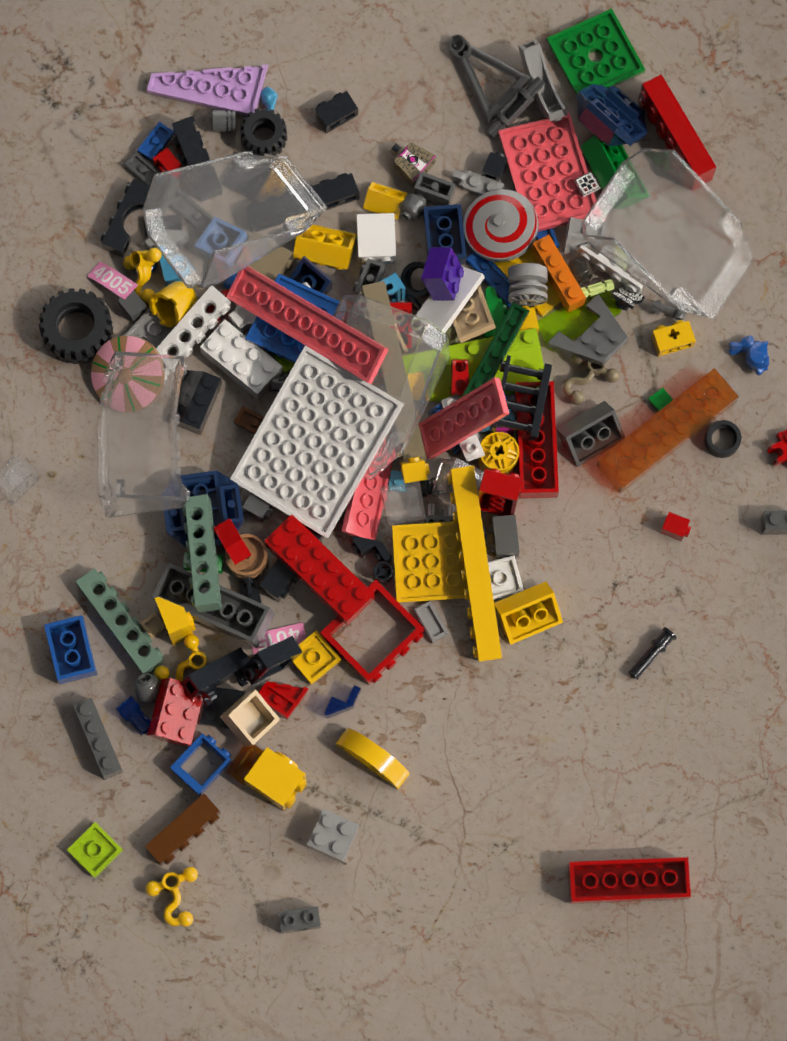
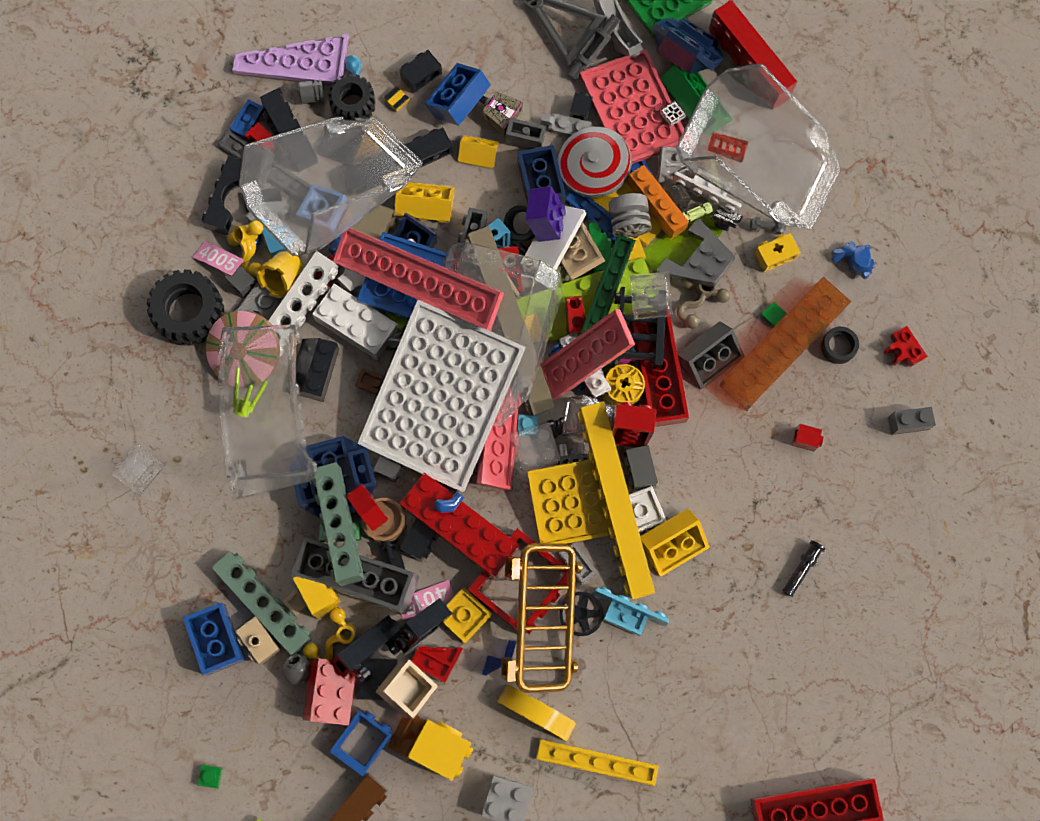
camera: 10 degrees left, 0 degrees up
(53, 778) = (210, 776): none -> green plate
(98, 738) = (252, 729): dark grey brick -> none
(113, 657) = (258, 641): none -> tan brick
(124, 429) = (243, 406): none -> lime plant
(132, 712) = (283, 696): clear blue piece -> none
(308, 137) = (396, 99): none -> tile
(311, 548) = (447, 506): none -> blue arm
(365, 546) = (502, 494): black slope -> none
(371, 140) = (457, 94): none -> blue brick
(371, 614) = (518, 569): none -> pearl gold bar
(376, 238) = (474, 187): white brick -> none
(382, 569) = (524, 516): black wheel -> none
(412, 207) = (506, 154): dark grey head -> none
(414, 470) = (542, 412): yellow brick -> none
(424, 812) = (597, 762): none -> yellow tile
(427, 670) = (582, 614): none -> black wheel
(472, 675) = (627, 614): none -> medium azure bracket
(535, 367) = (651, 295): none -> clear brick
(645, 223) = (739, 157): none -> clear red slope

